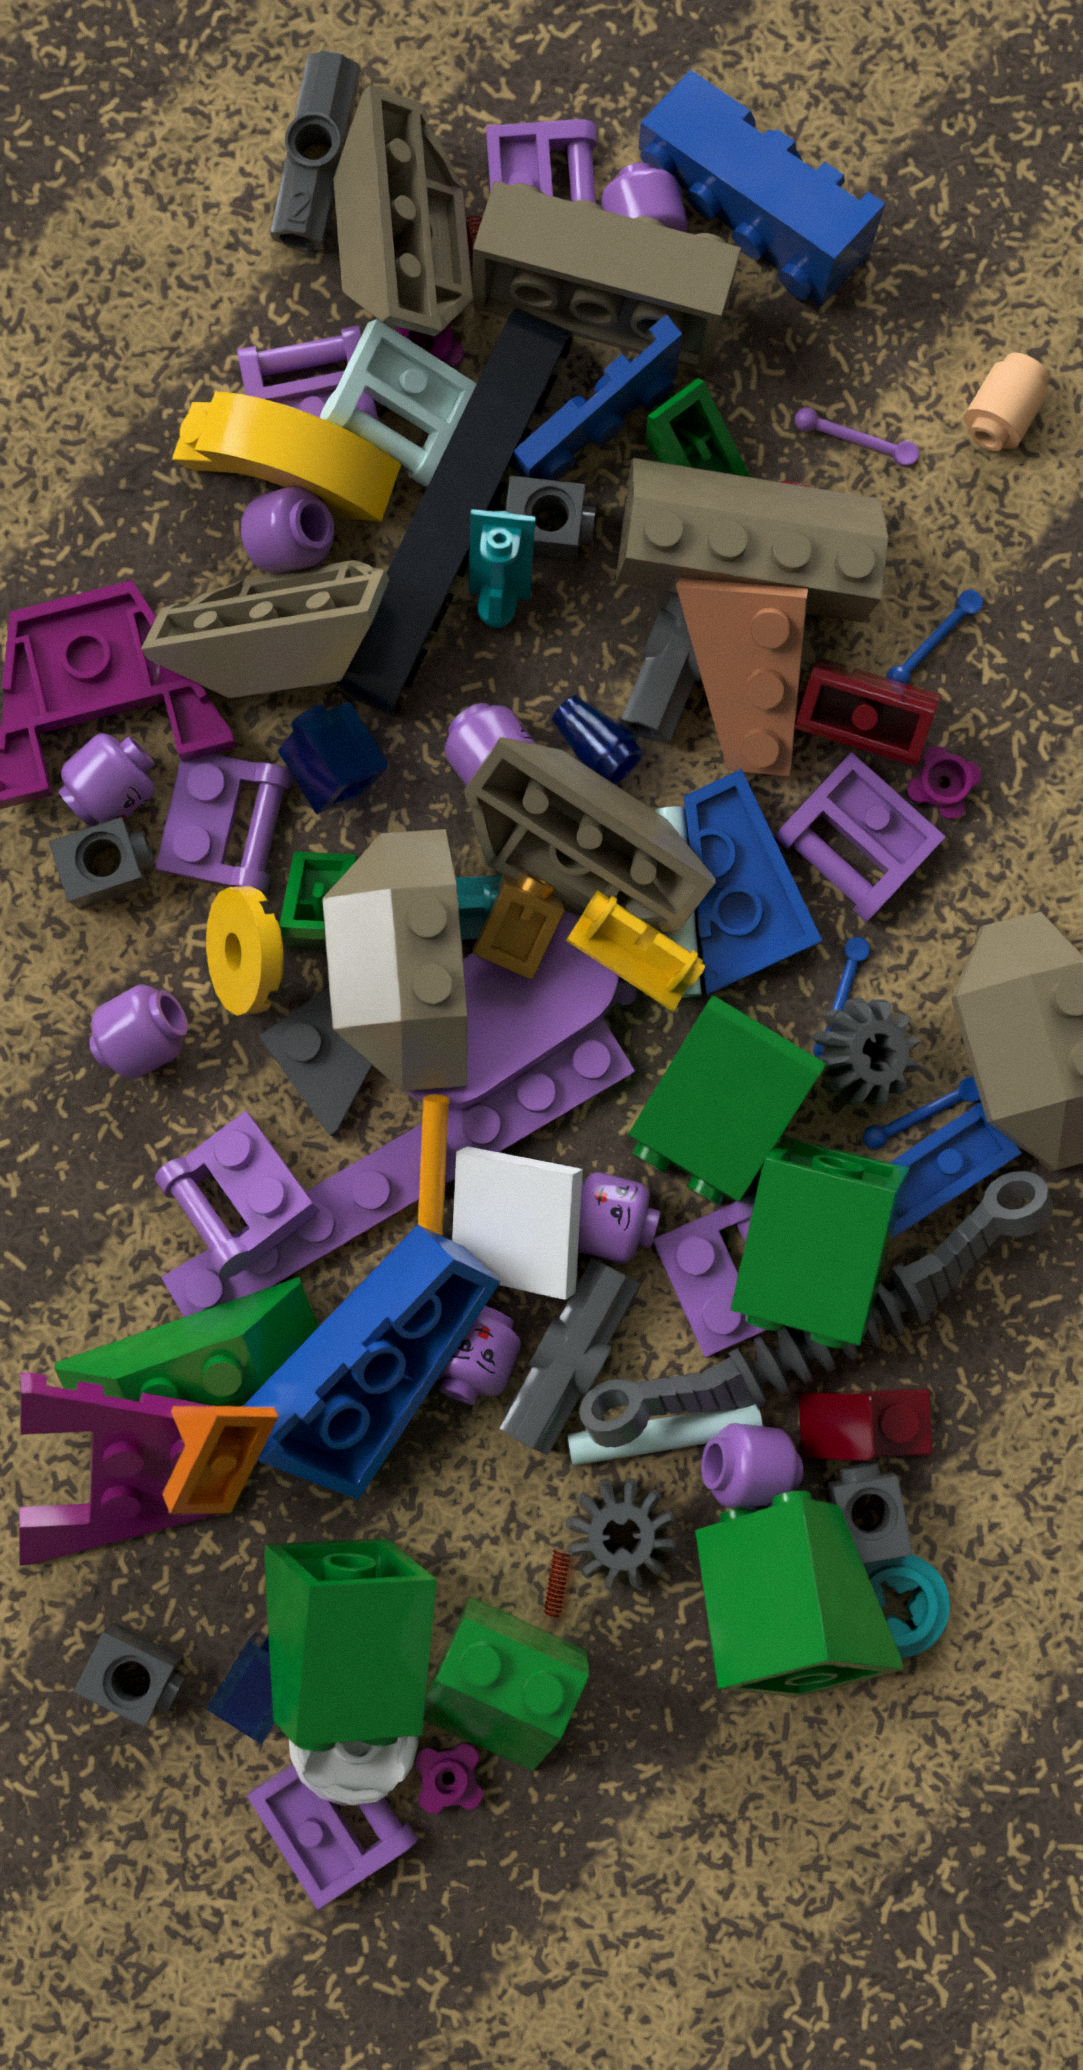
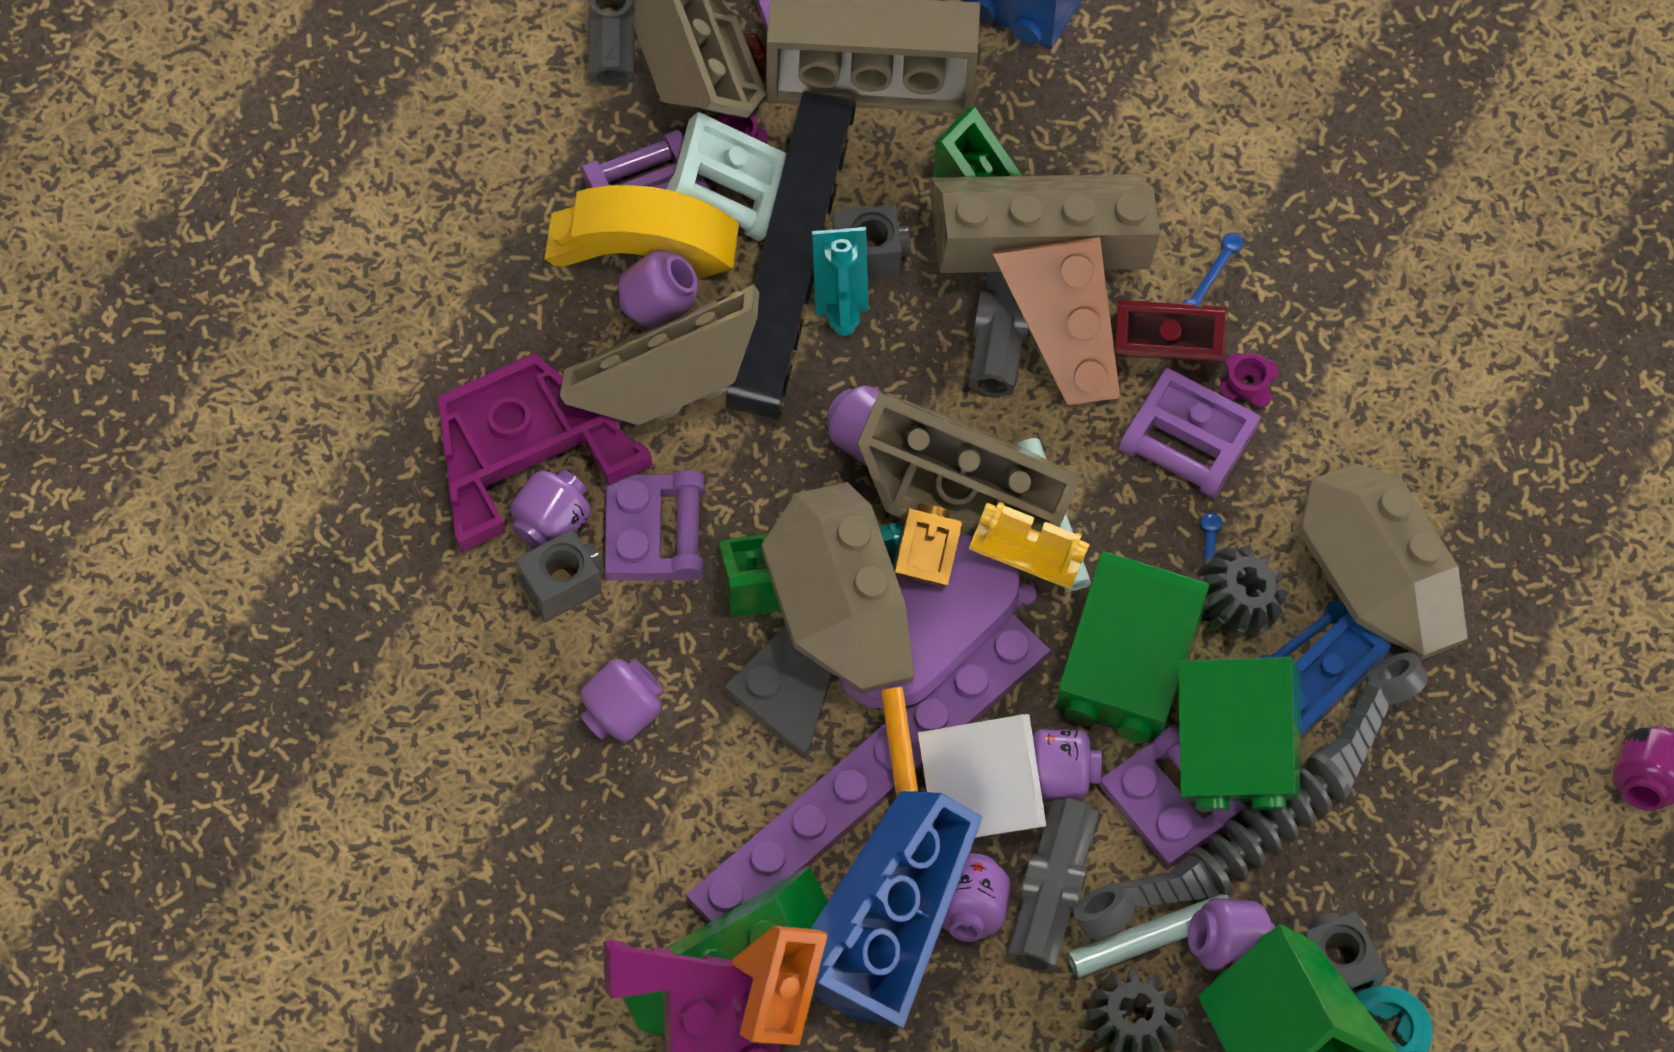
camera: 15 degrees left, 20 degrees down
(243, 950) = (686, 588): yellow tile -> none
(253, 1180) = (745, 796): medium lavender plate -> none
(332, 756) = (736, 453): clear blue brick -> none
(597, 739) = (953, 398): clear blue cone -> none
(624, 387) = (893, 159): blue wing -> none
(755, 907) = (1115, 501): blue wing -> none
(864, 1423) = (1312, 888): dark red slope -> none
(904, 453) = (1148, 142): medium lavender hinge -> none
(1007, 402) = (1222, 87): light nougat brick -> none

